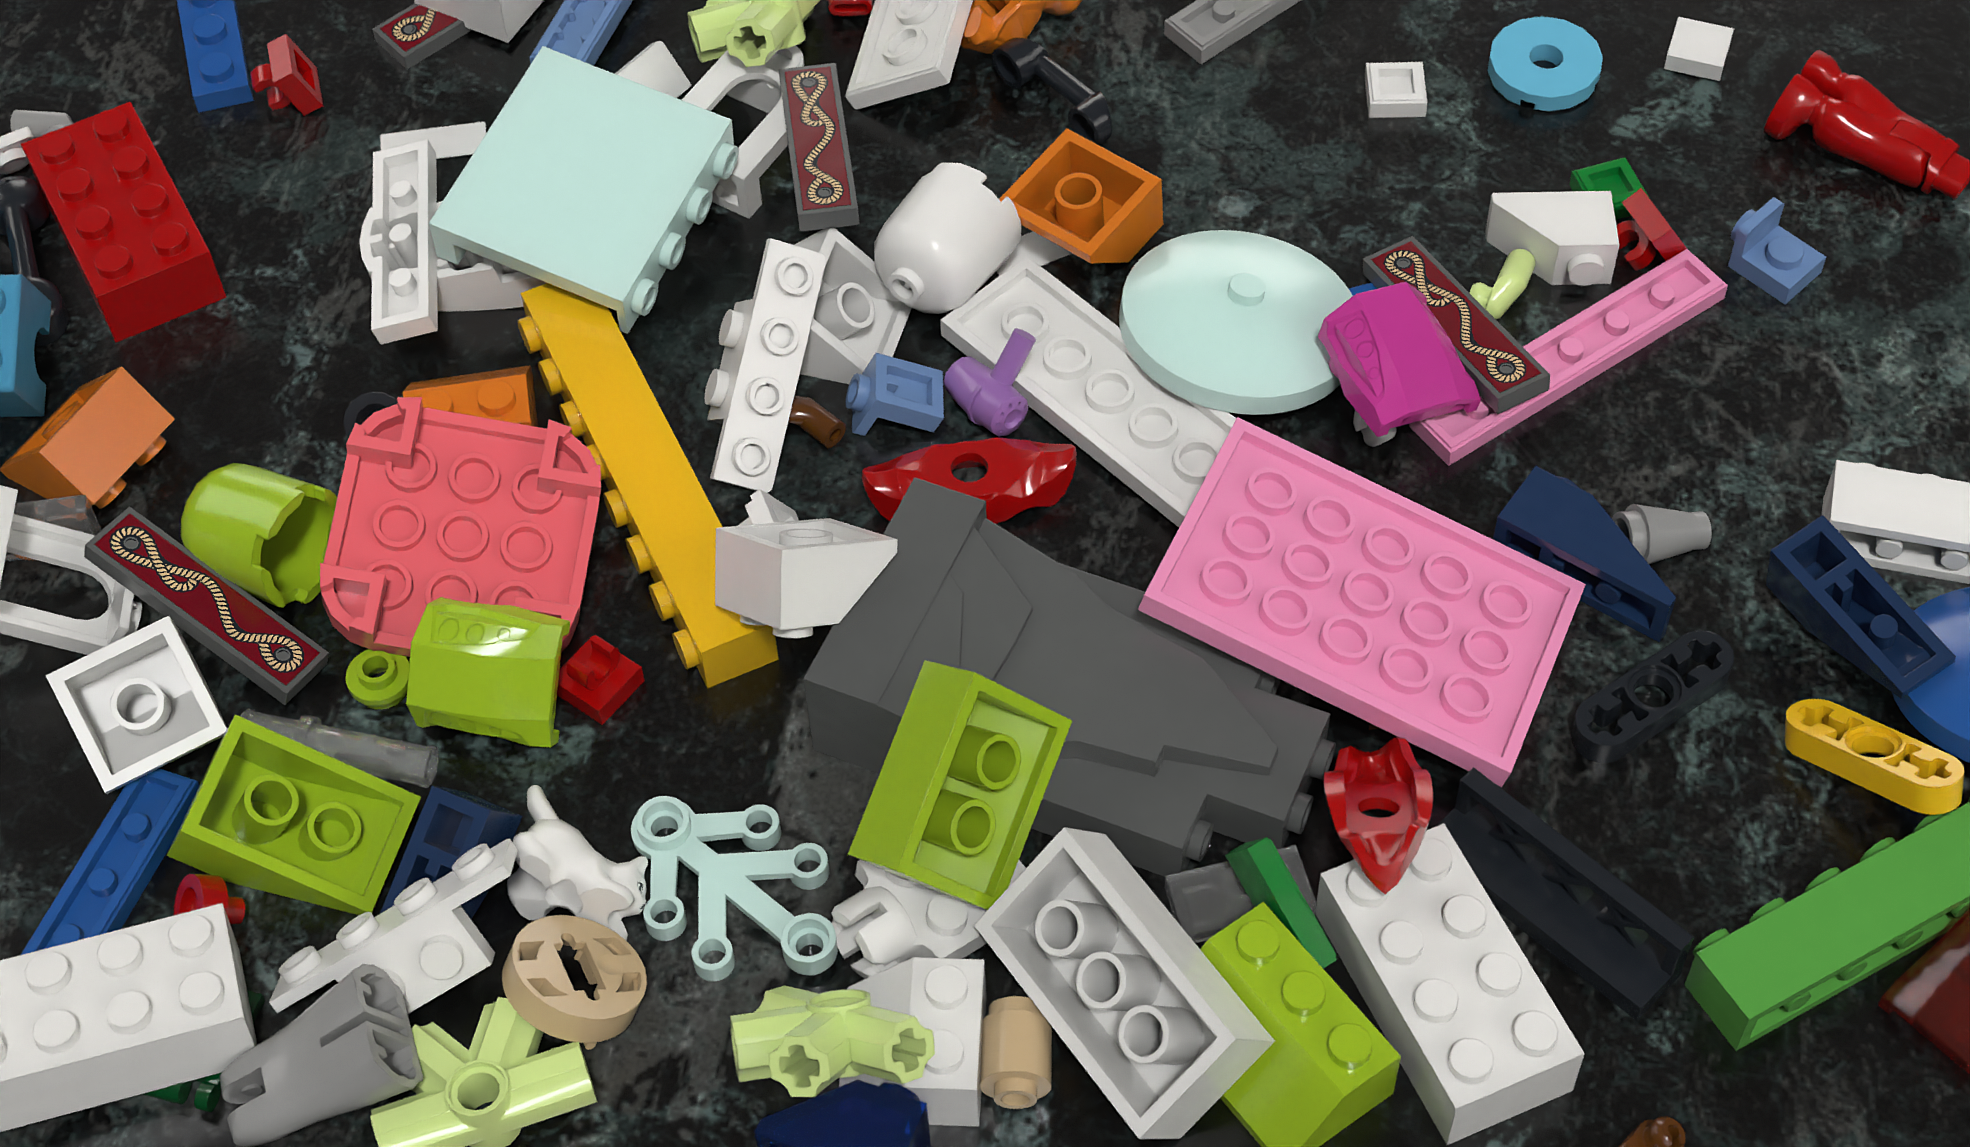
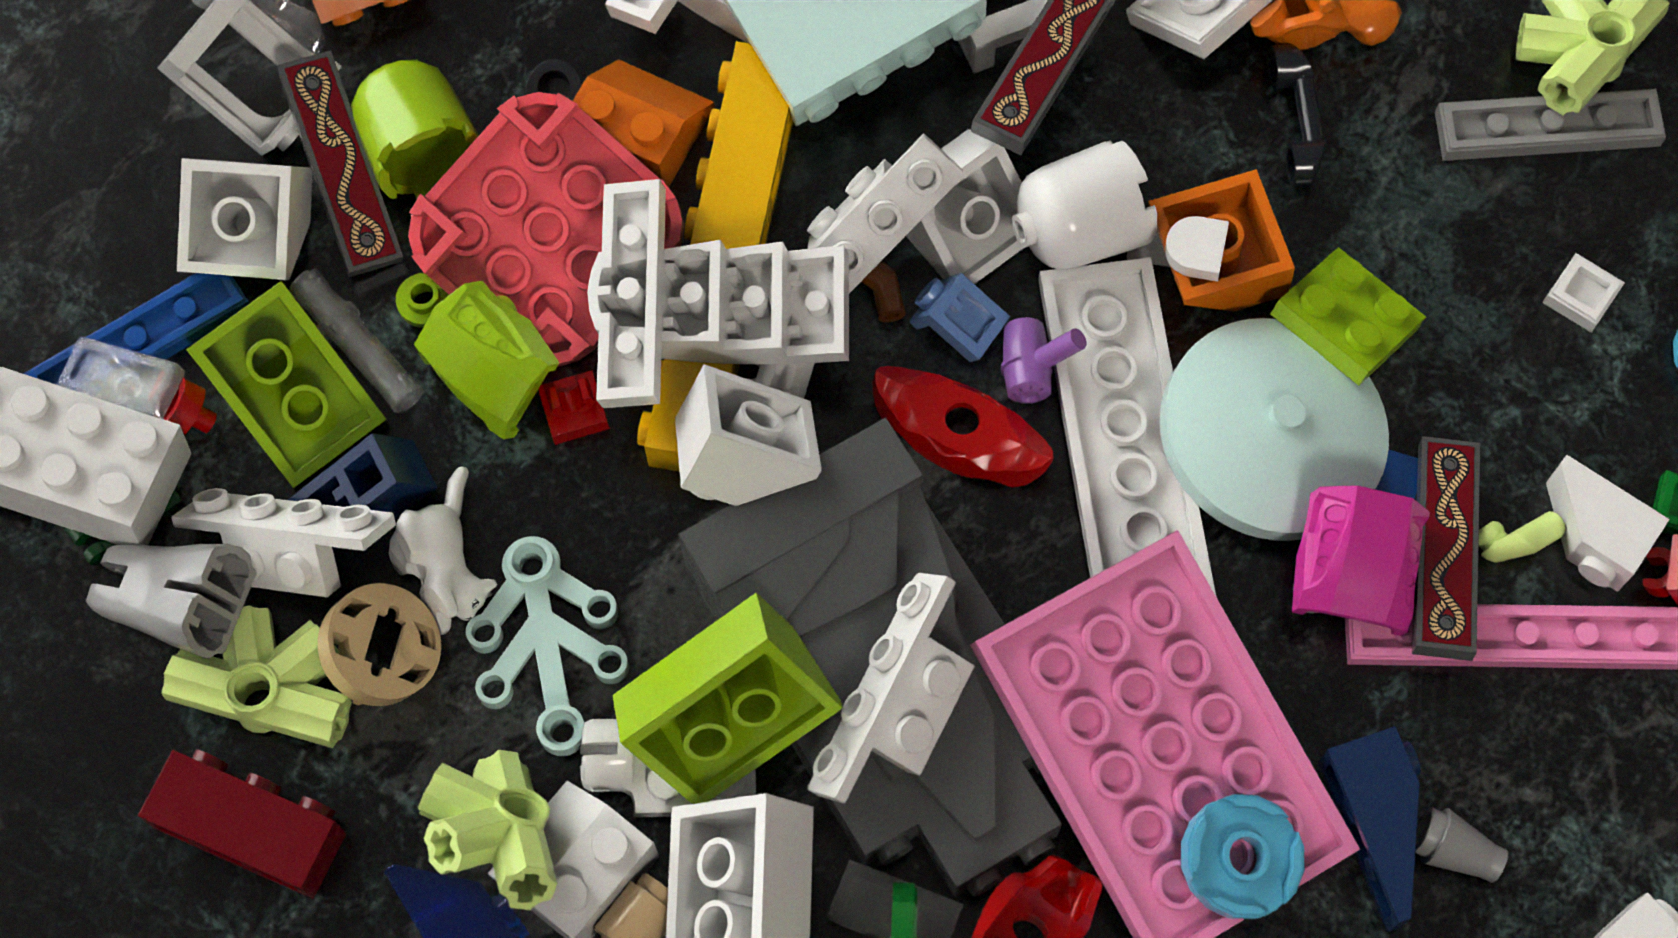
camera: 35 degrees right, 15 degrees up
(119, 904) = (122, 376): none -> clear plate
(666, 495) = (704, 300): none -> white slope
(1069, 207) = (1197, 247): none -> white tile
(1112, 683) = (901, 696): none -> white bracket
(1227, 204) = (1348, 315): none -> lime plate
(1482, 661) = (1208, 863): none -> medium azure tile

